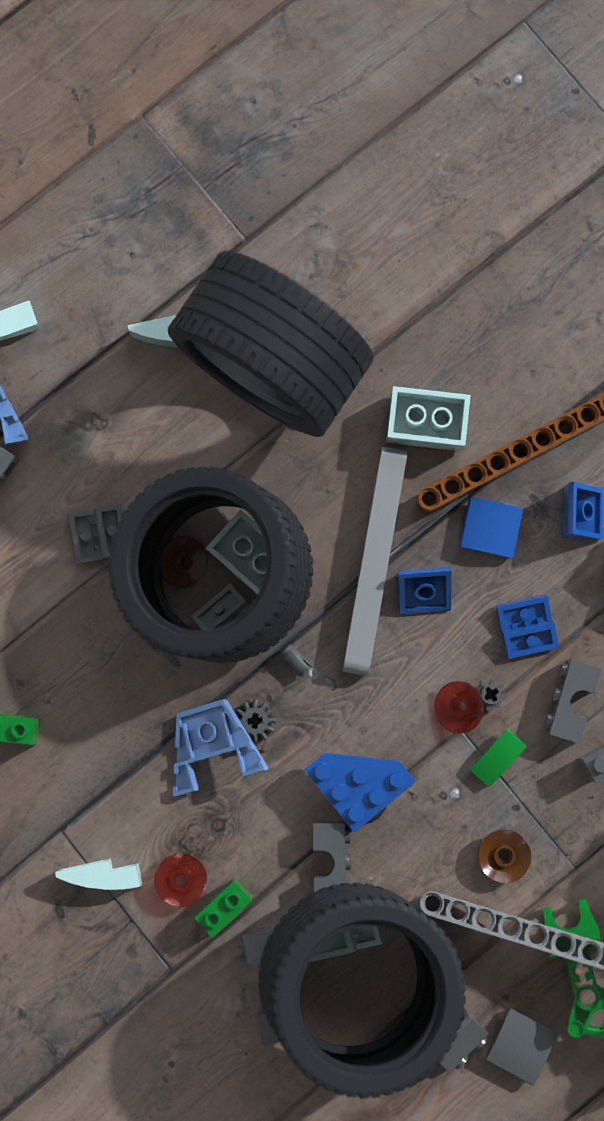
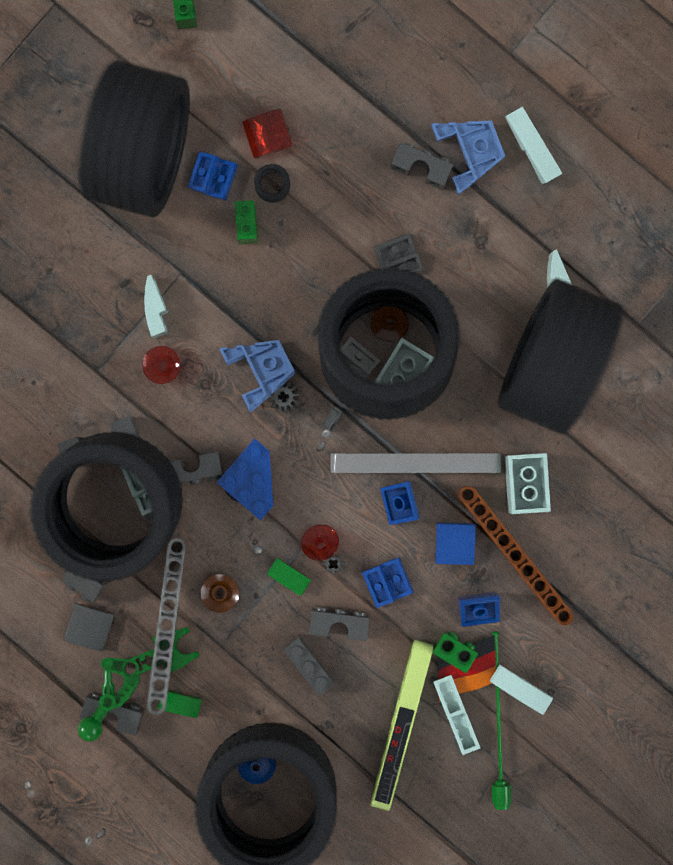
camera: 80 degrees right, 5 degrees up
(223, 907) = (147, 399): green brick -> none

